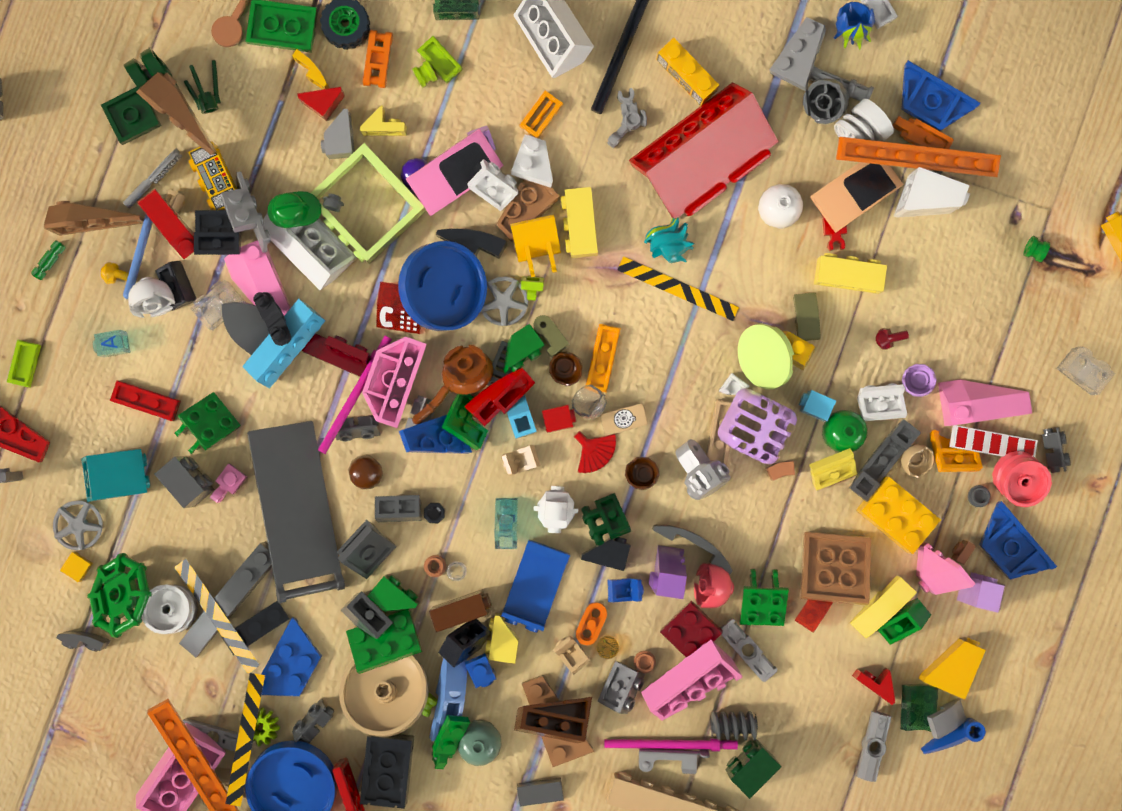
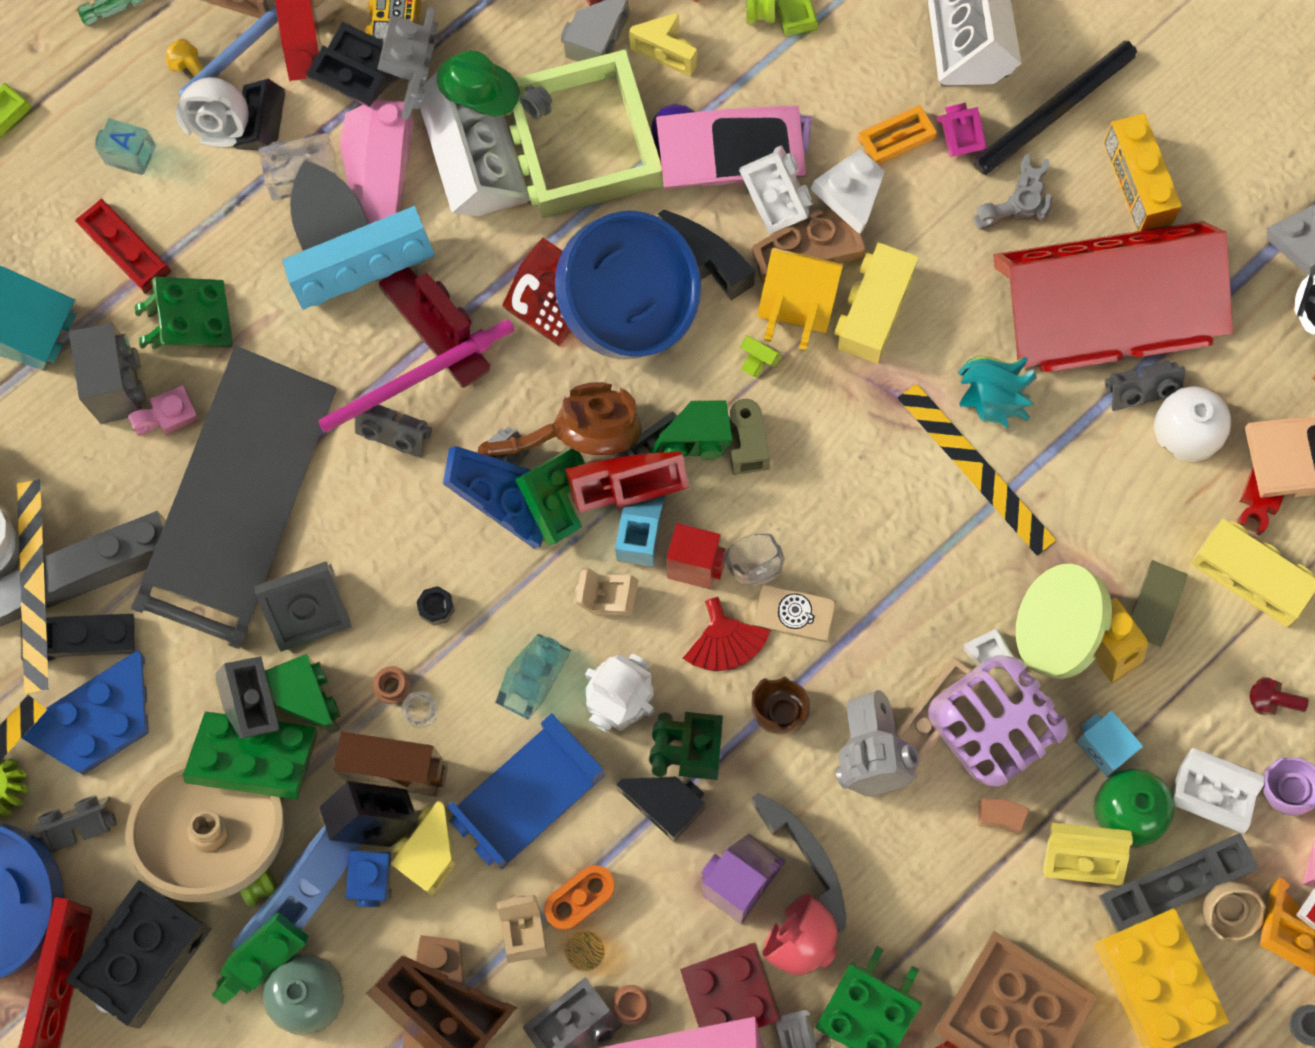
camera: 35 degrees right, 15 degrees down
(273, 318) = (364, 210): black piece -> none
(365, 472) = (369, 496): reddish brown hair -> none
(392, 379) = (485, 380): bright pink wedge -> none
(398, 508) = (384, 570): dark grey hinge -> none
(504, 301) = (706, 358): light grey wheel -> none
(565, 368) = (745, 493): reddish brown hair -> none
(575, 93) = (962, 129): none -> dark pink bracket
(603, 357) = (812, 508): light orange tile -> none
(625, 590) = (659, 872): blue bracket -> none
(753, 190) = (1156, 383): none -> dark grey hinge

